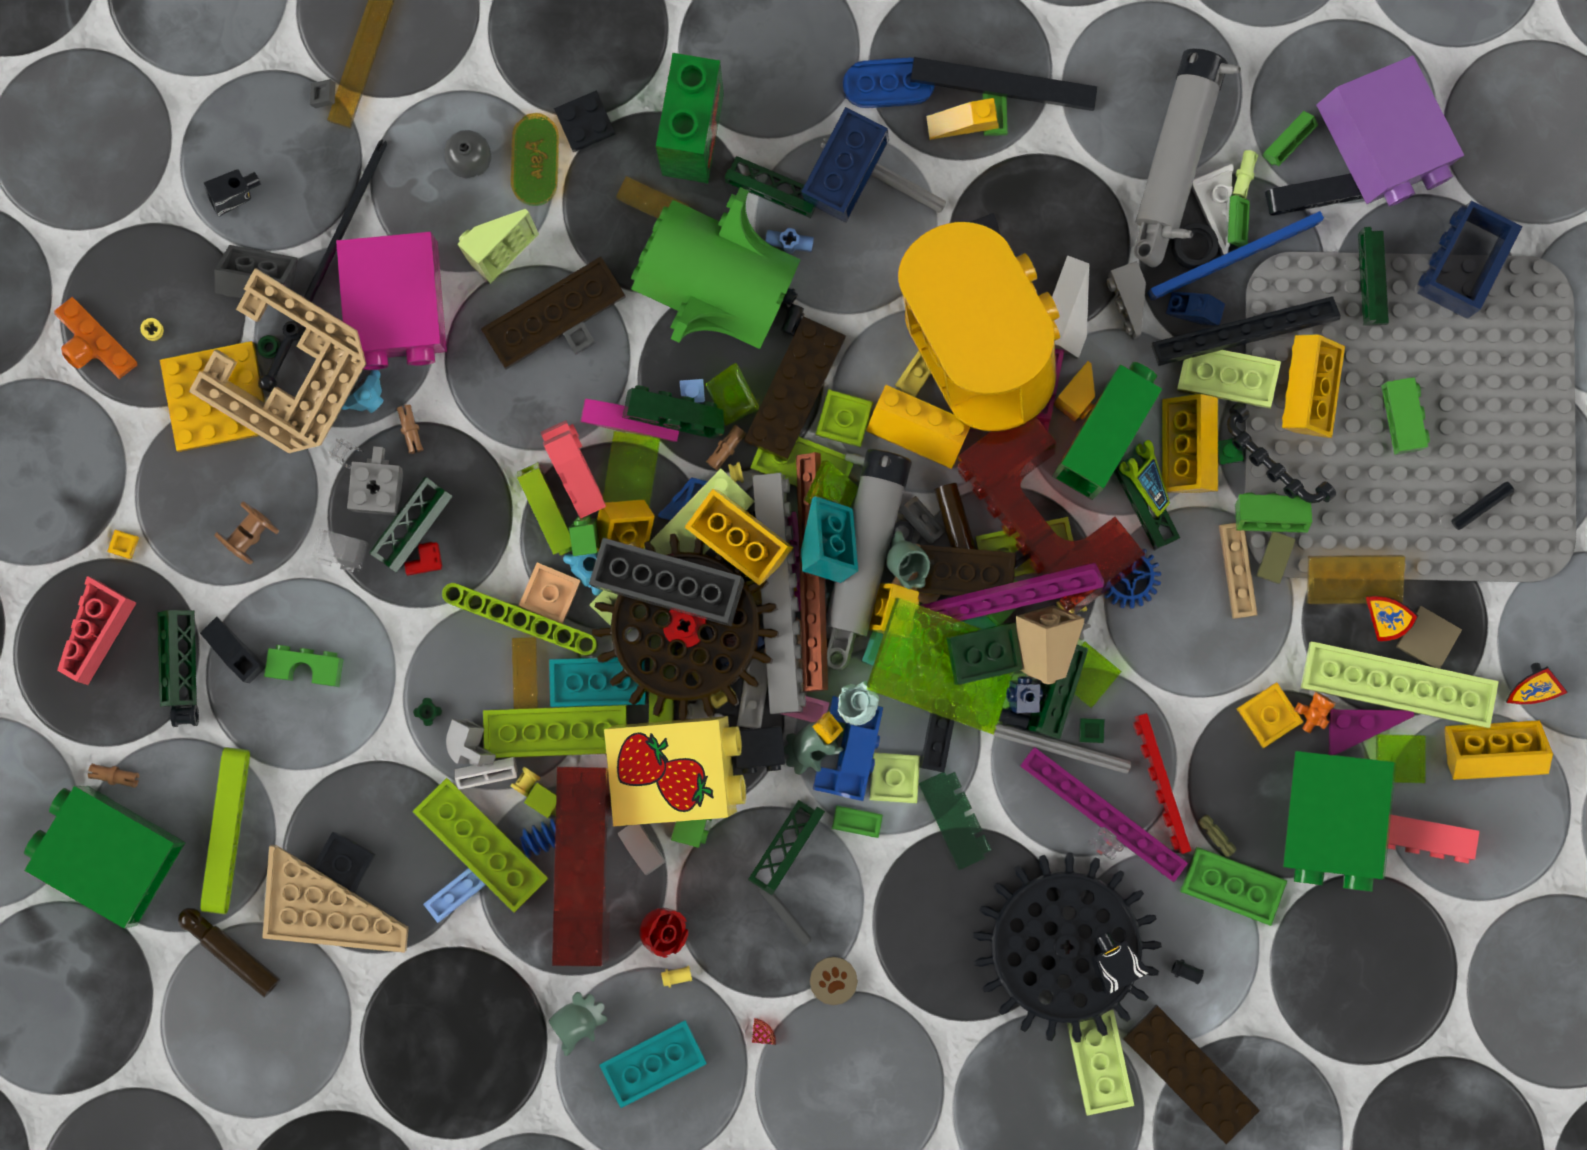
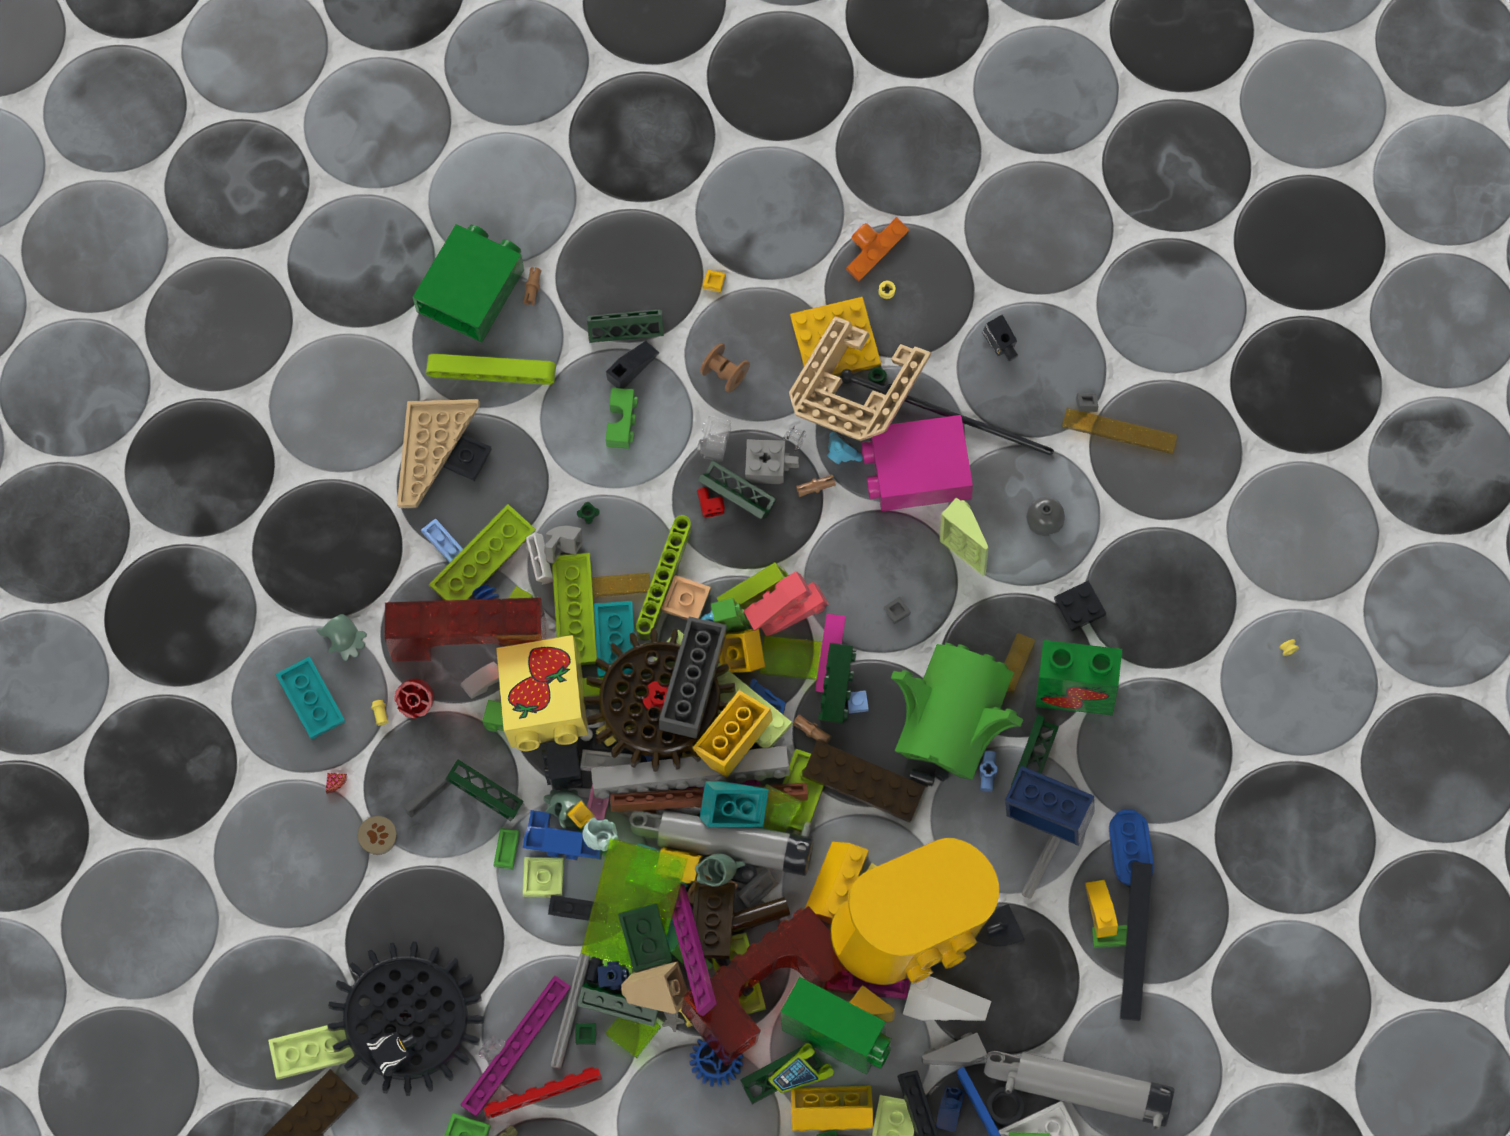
camera: 90 degrees right, 15 degrees down
(94, 630) = (644, 263): coral wedge -> none
(184, 716) = (579, 334): black bush -> none
(228, 952) = (396, 378): dark brown piece -> none
(239, 263) = (940, 368): dark grey slope -> none
(525, 781) = (534, 588): light yellow bush -> none
(535, 159) = (1045, 569): clear yellow tile -> none
(553, 312) = (917, 589): dark brown plate -> none
(732, 394) = (856, 733): clear neon green slope -> none
(736, 472) = (790, 738): light yellow bush -> none
(844, 418) = (840, 822): lime plate -> none
(954, 825) = (507, 925): clear green windscreen -> none
(1187, 971) = (386, 1119): black pin -> none

